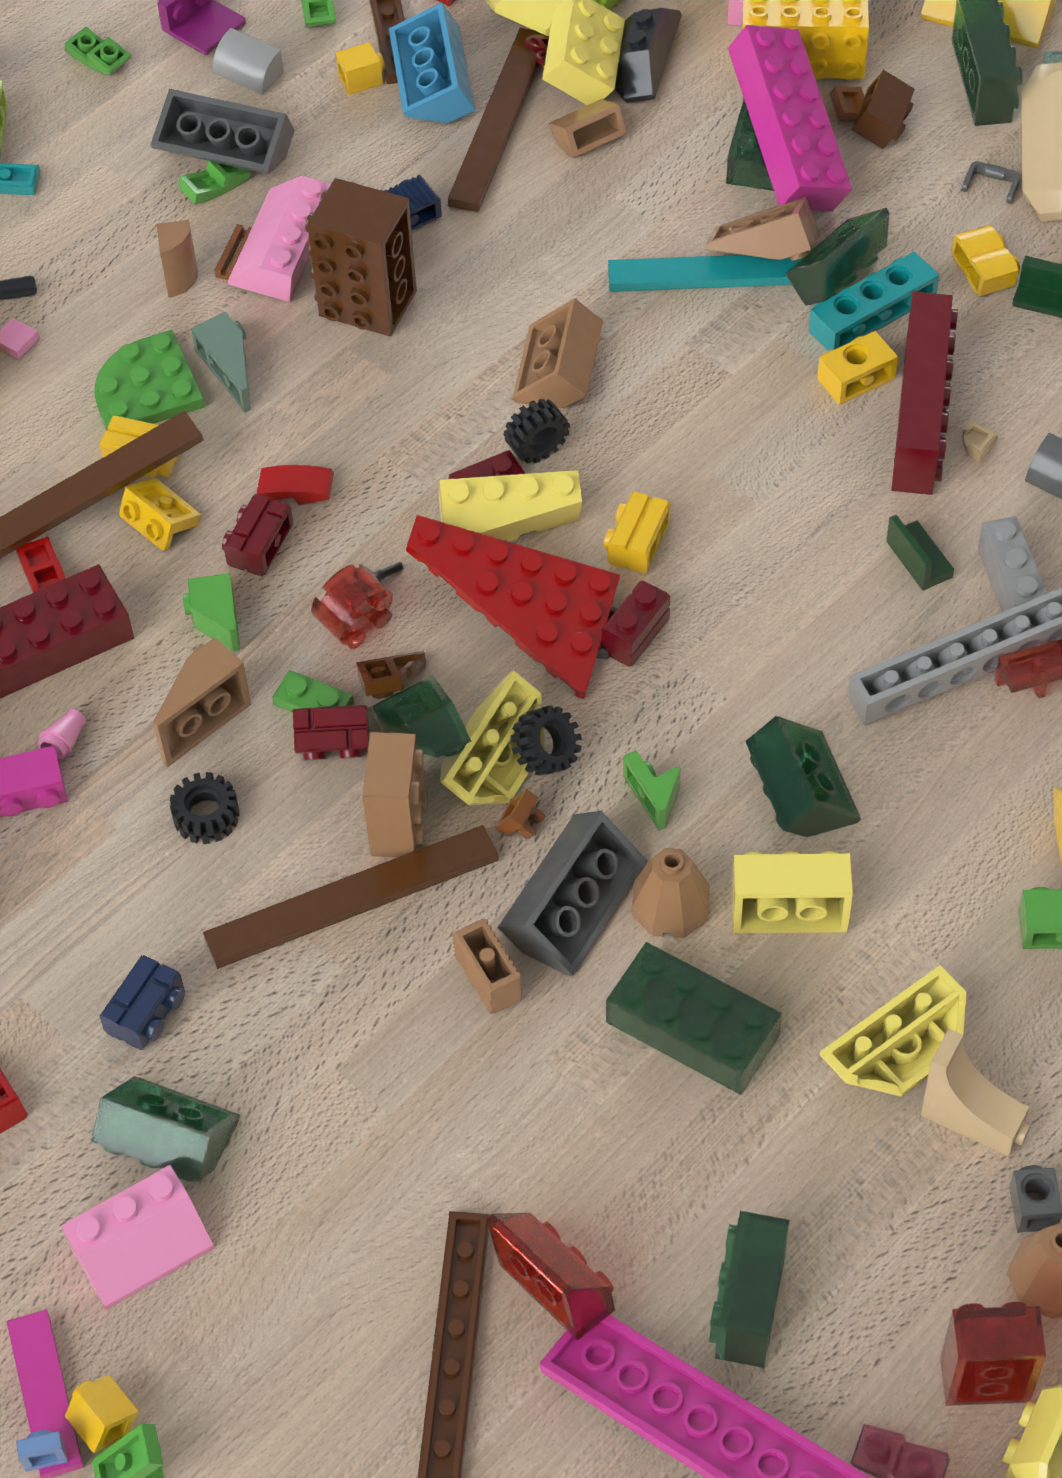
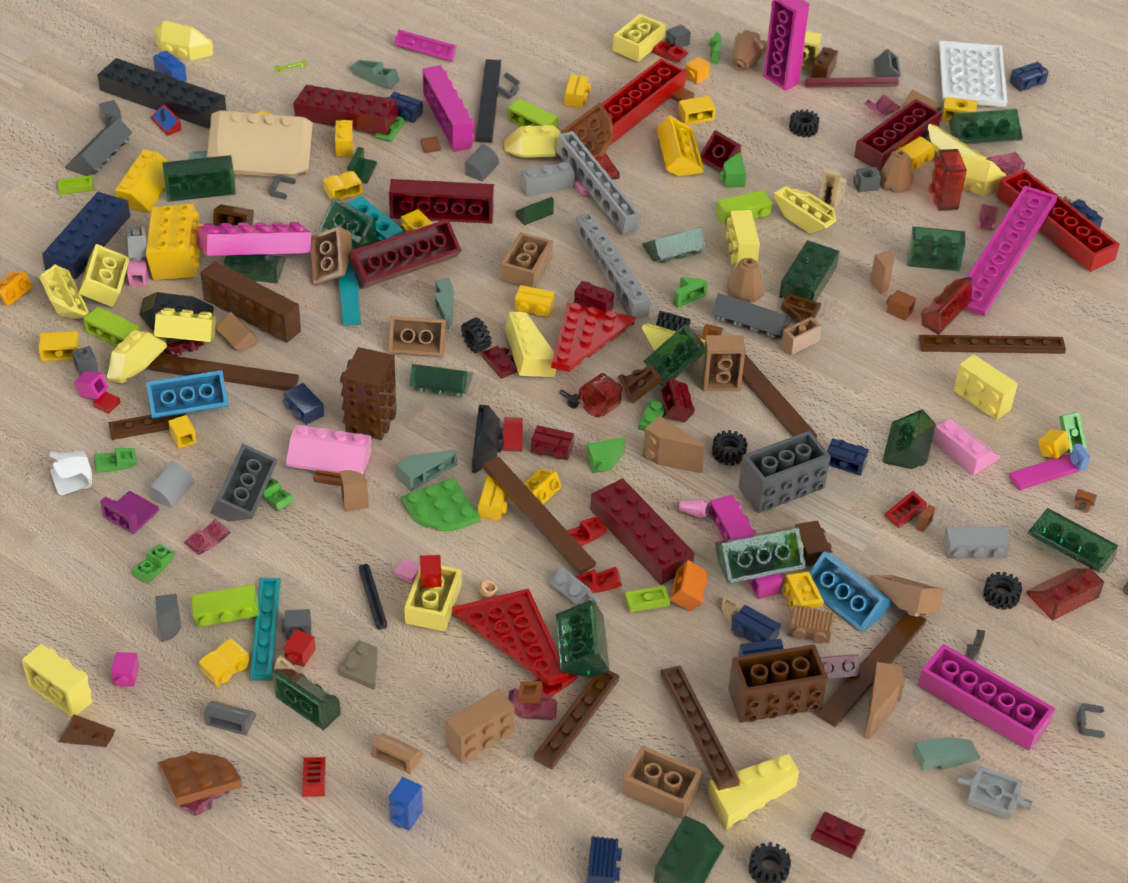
camera: 100 degrees left, 10 degrees down
(87, 863) = (784, 471): none -> dark grey brick
(134, 107) = (204, 540): none -> clear pink slope
(279, 1295) = (985, 387): none -> light yellow brick
(284, 435) = (486, 437): none -> black wedge
(443, 386) = (440, 380): none -> clear green slope
(583, 990) = (799, 307): none -> reddish brown wing
(583, 1189) = (901, 304): none -> dark orange brick
(643, 399) = (444, 300): none -> sand green slope
(645, 129) = (251, 301): none -> reddish brown brick
(675, 1158) = (882, 270): none -> medium nougat brick
(734, 660) = (612, 266): none -> light grey brick
(748, 519) = (526, 260): none -> medium nougat brick
(763, 333) = (404, 253): none -> dark red brick
(924, 921) = (756, 201): none -> lime brick

